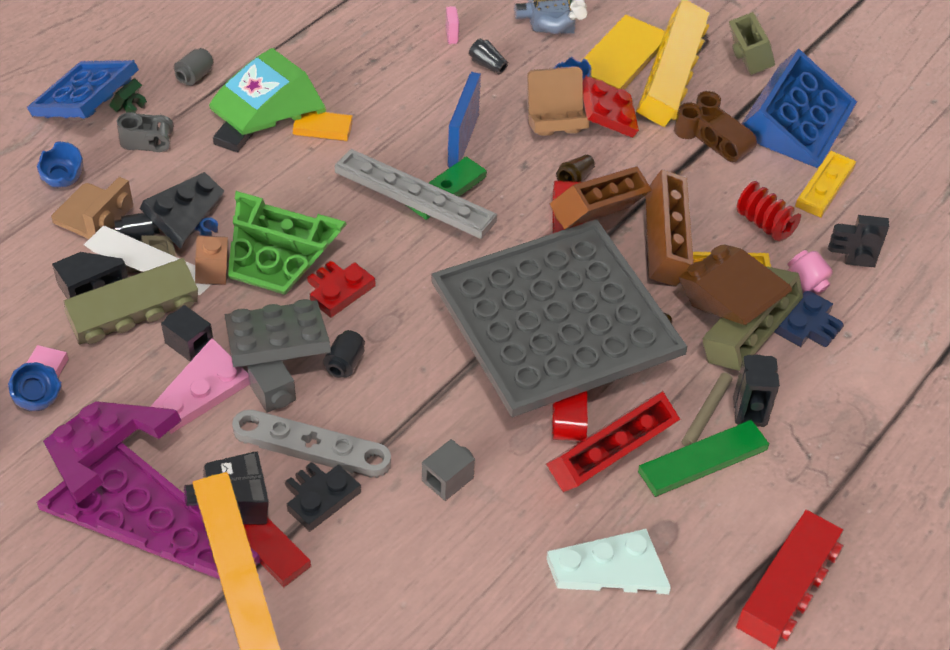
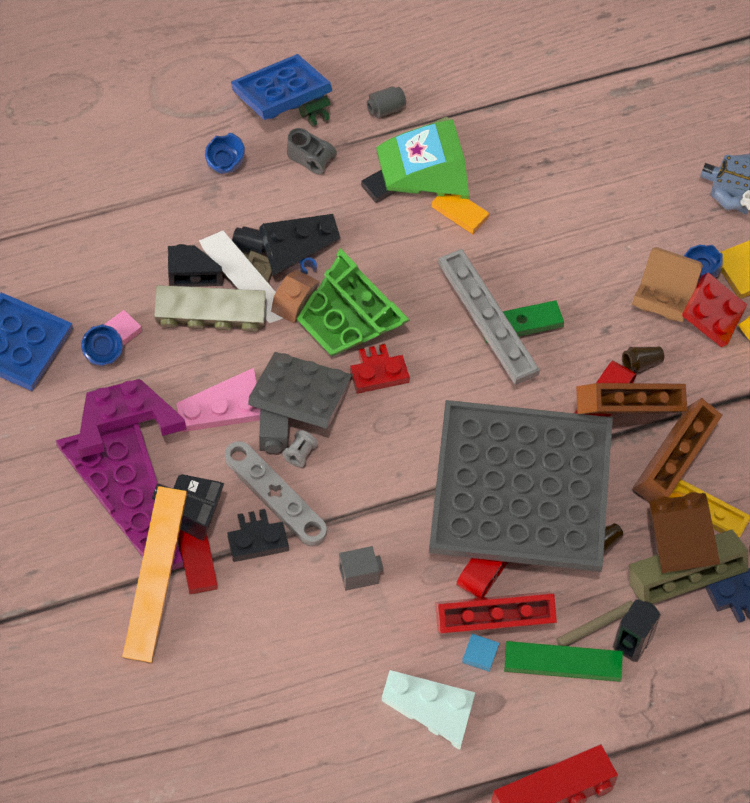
camera: 30 degrees right, 10 degrees up
(93, 207) = (229, 206): medium nougat bracket -> none
(186, 332) = (236, 353): black brick -> none
(309, 388) = (297, 457): none -> light grey bush
(344, 354) = (343, 432): black brick -> none
(452, 25) = (635, 159): bright pink tile -> none
(464, 119) = (574, 265): blue tile -> none
(487, 56) = (645, 205): black cone -> none
(621, 489) = (480, 652): none -> dark azure tile

